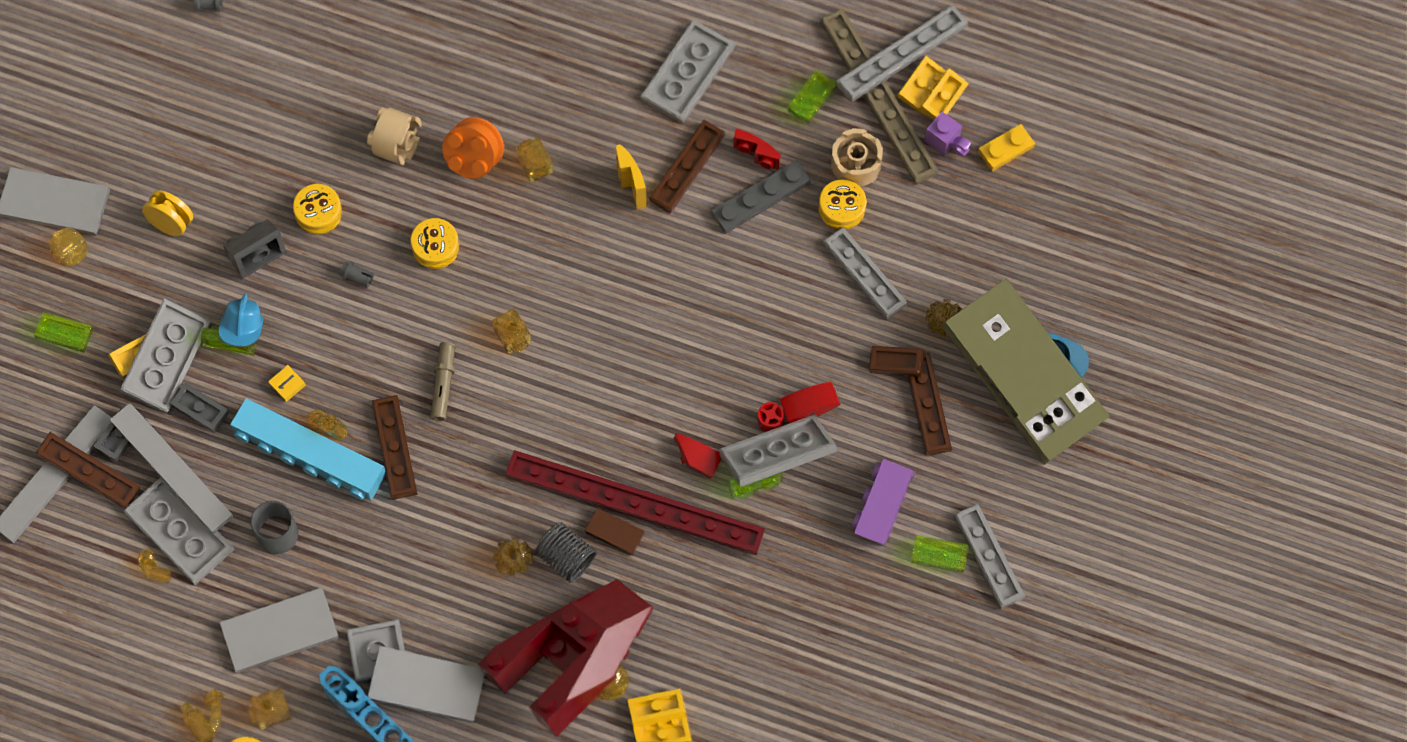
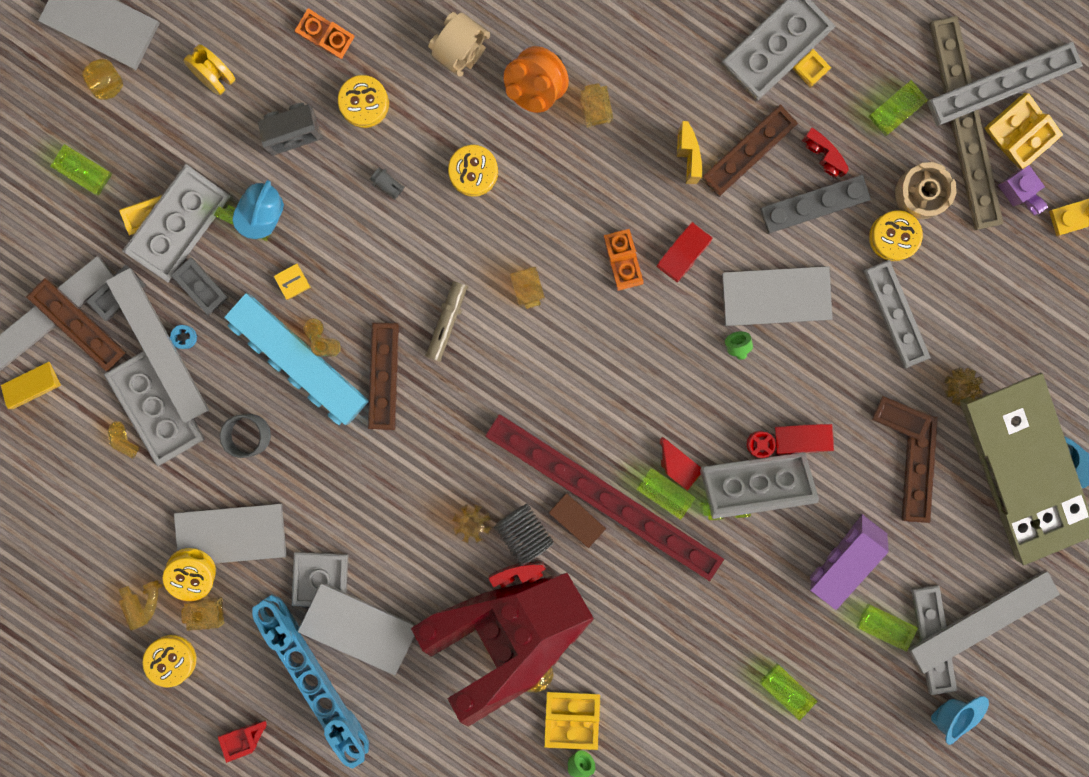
camera: 15 degrees right, 20 degrees up
(53, 540) = (29, 386): none -> yellow slope
(201, 461) = (178, 331): none -> dark azure bush
(248, 672) = (189, 574): none -> yellow head
(267, 162) = (324, 34): none -> orange slope
(574, 588) = (530, 571): none -> red slope
(595, 287) = (623, 259): none -> orange slope
(650, 265) = (684, 252): none -> red slope
(692, 484) = (665, 493): none -> clear neon green plate
(724, 83) = (811, 68): none -> yellow tile
(724, 334) = (739, 344): none -> bright green tile
(748, 284) = (777, 296): none -> light grey tile
(862, 638) = (788, 691): none -> clear neon green plate
(1029, 524) = (984, 621): none -> light grey tile
(1036, 616) = (959, 717): none -> dark azure piece

